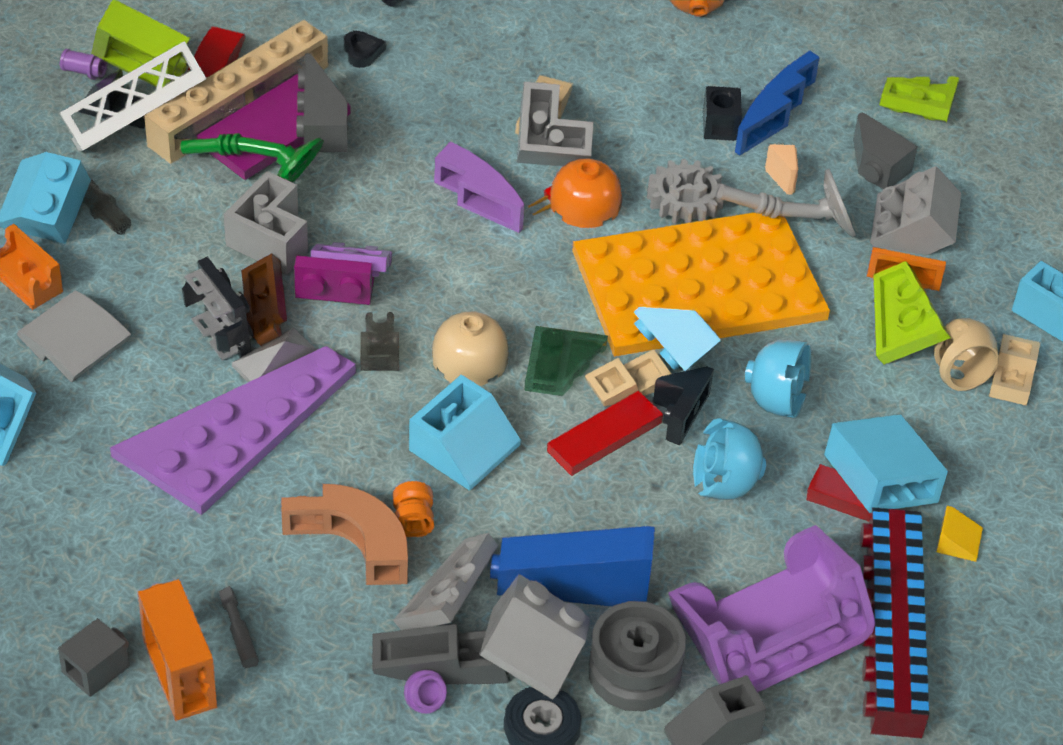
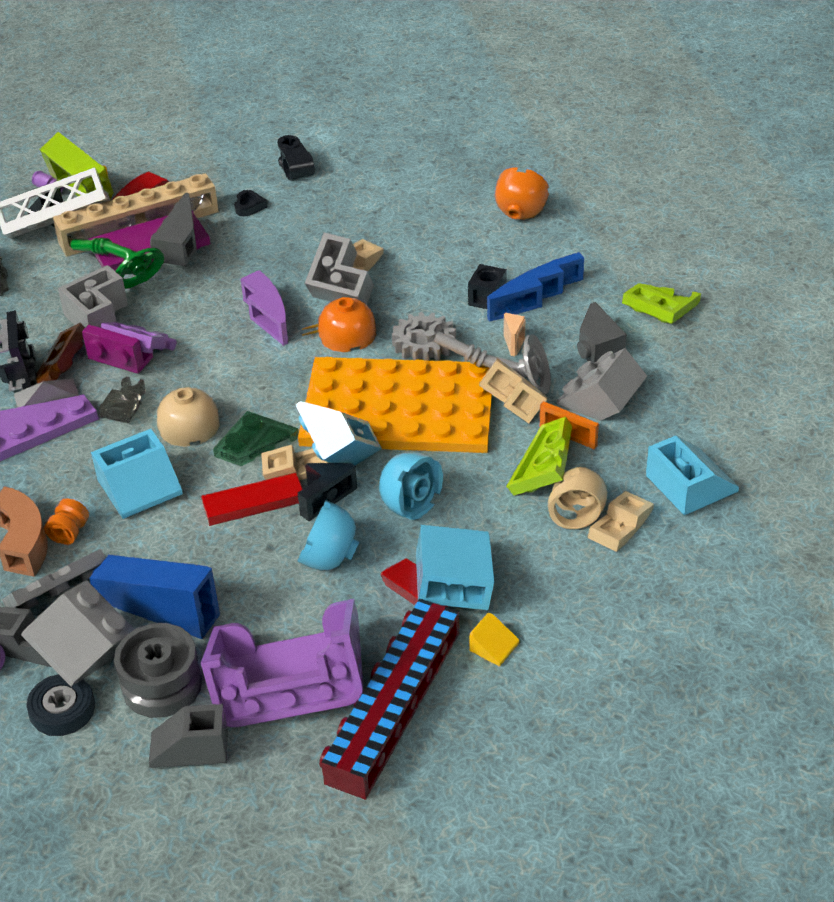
camera: 25 degrees right, 5 degrees down
(828, 240) = (513, 390): none -> tan slope

